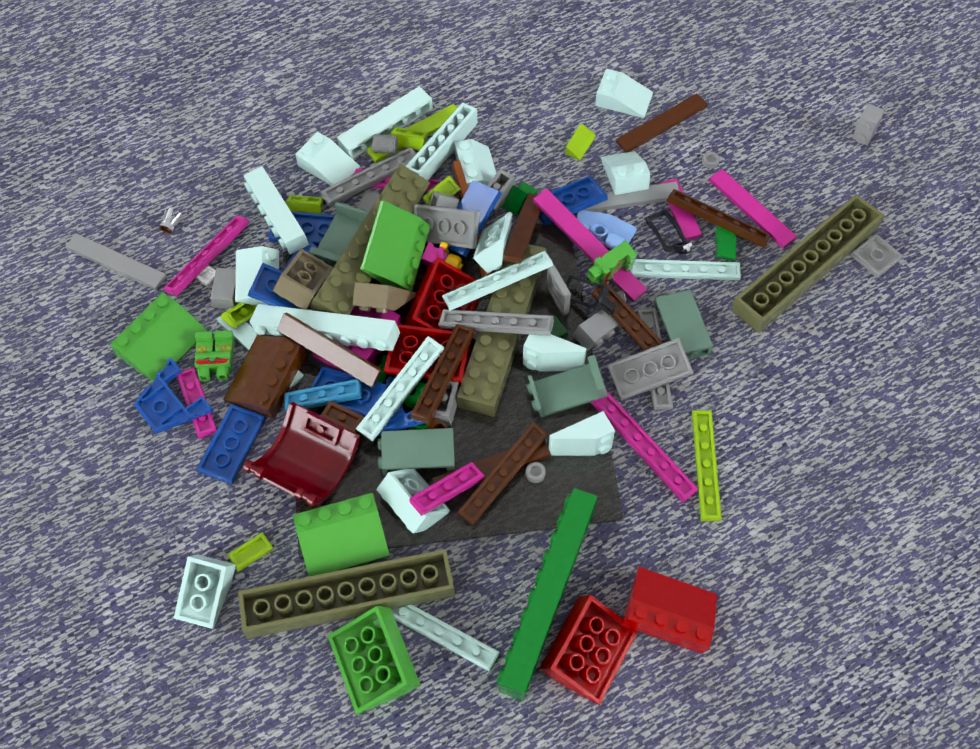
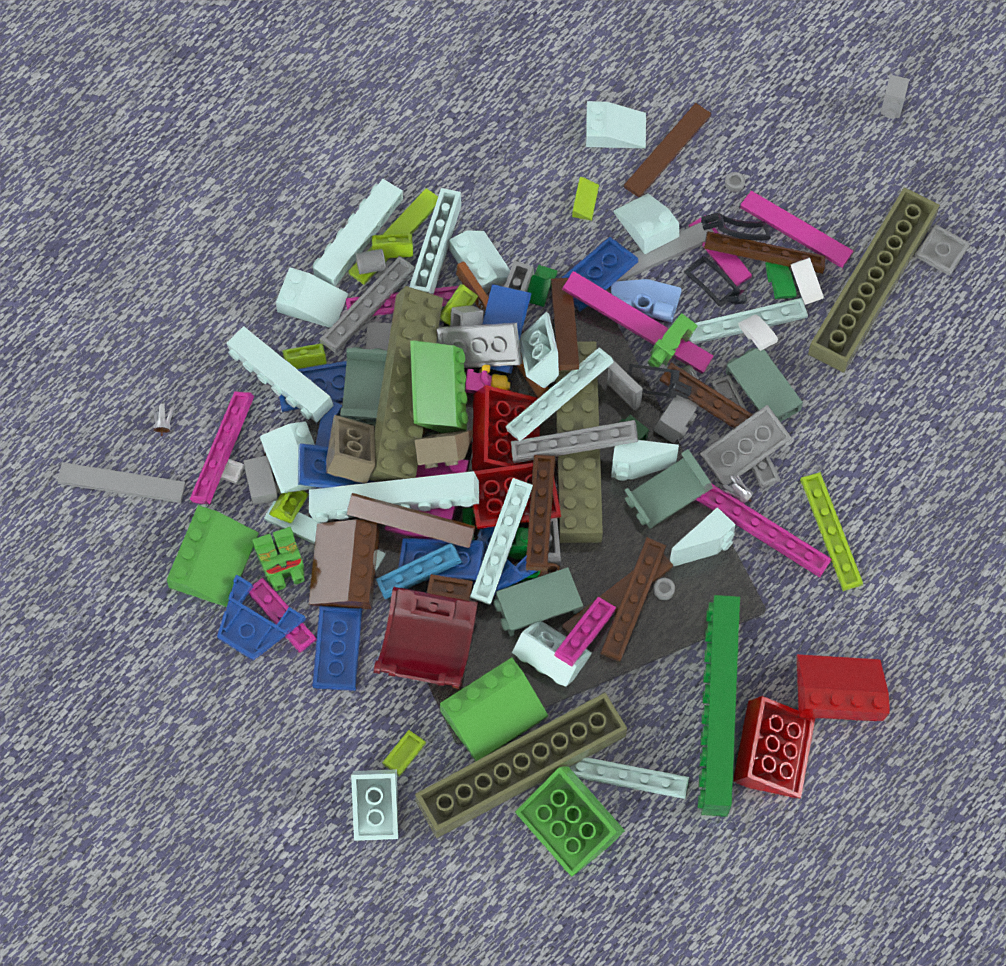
camera: 20 degrees left, 5 degrees up
(631, 405) = (739, 490): none -> flat silver piece
(685, 182) = (720, 223): none -> black sword
(692, 278) = (758, 331): none -> white slope
(748, 249) = (807, 281): none -> white slope

